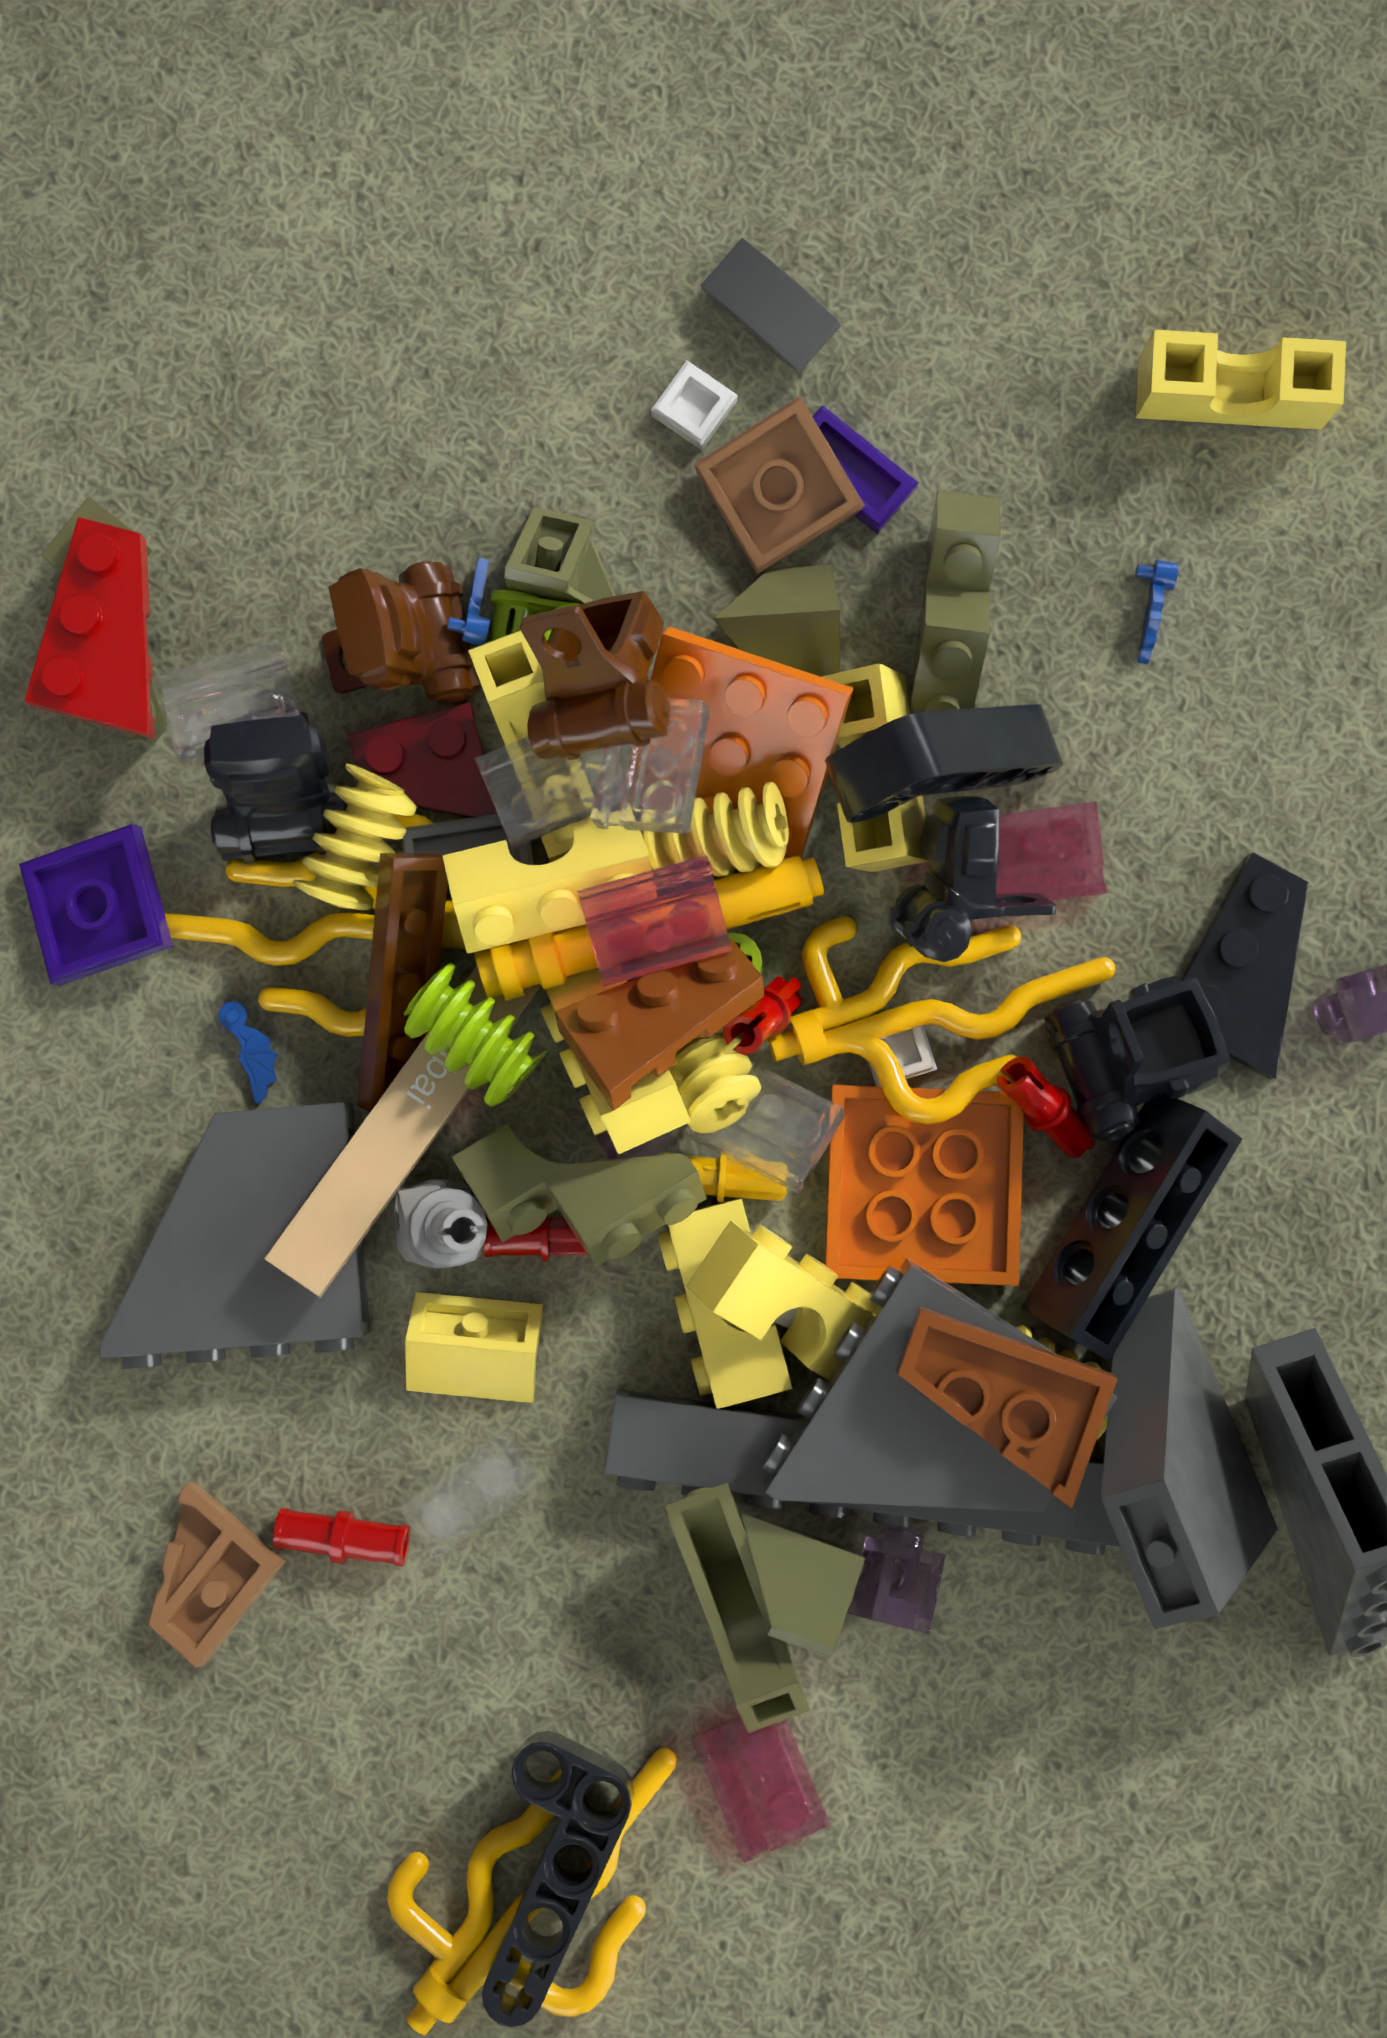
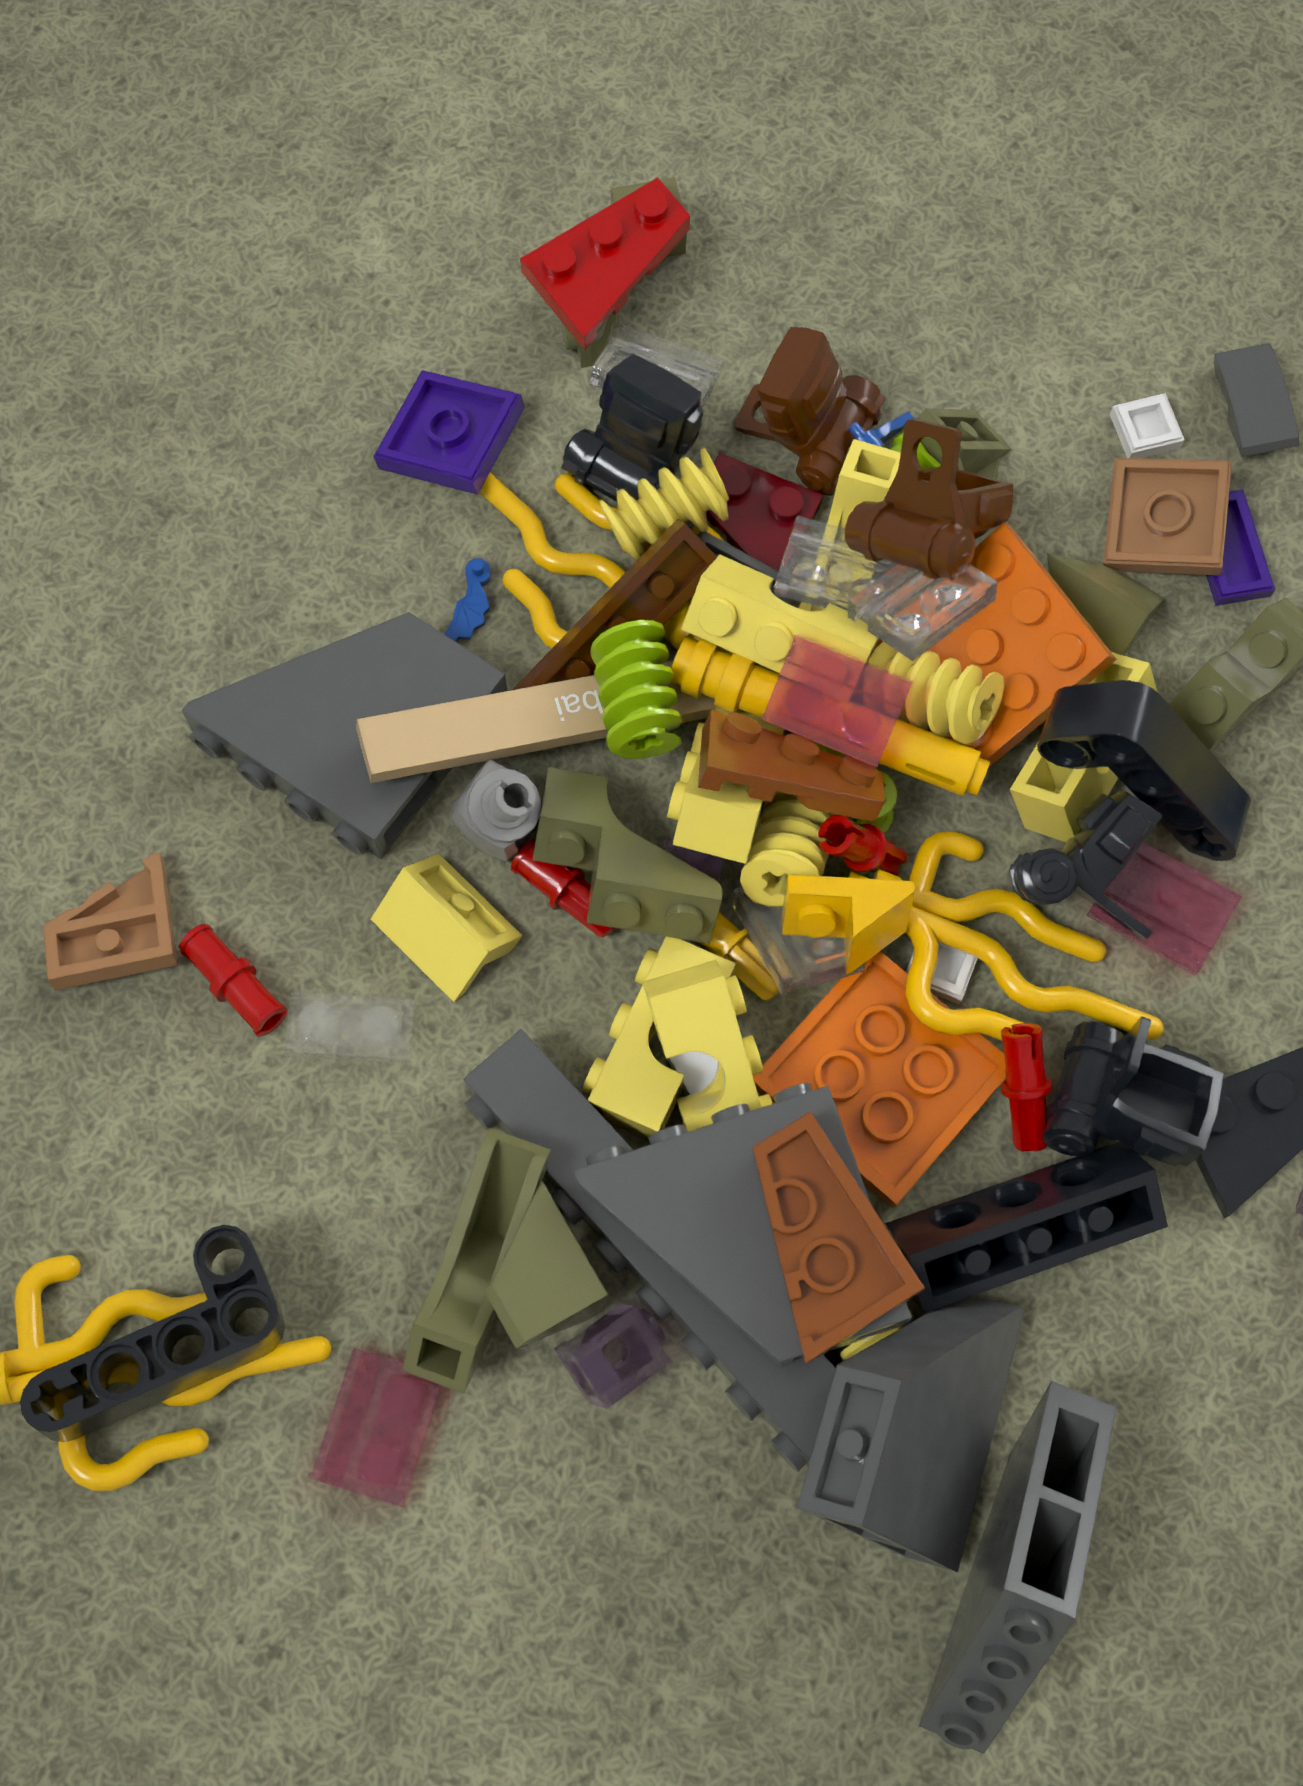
camera: 40 degrees right, 15 degrees down
(812, 1076) = (857, 909): none -> yellow slope

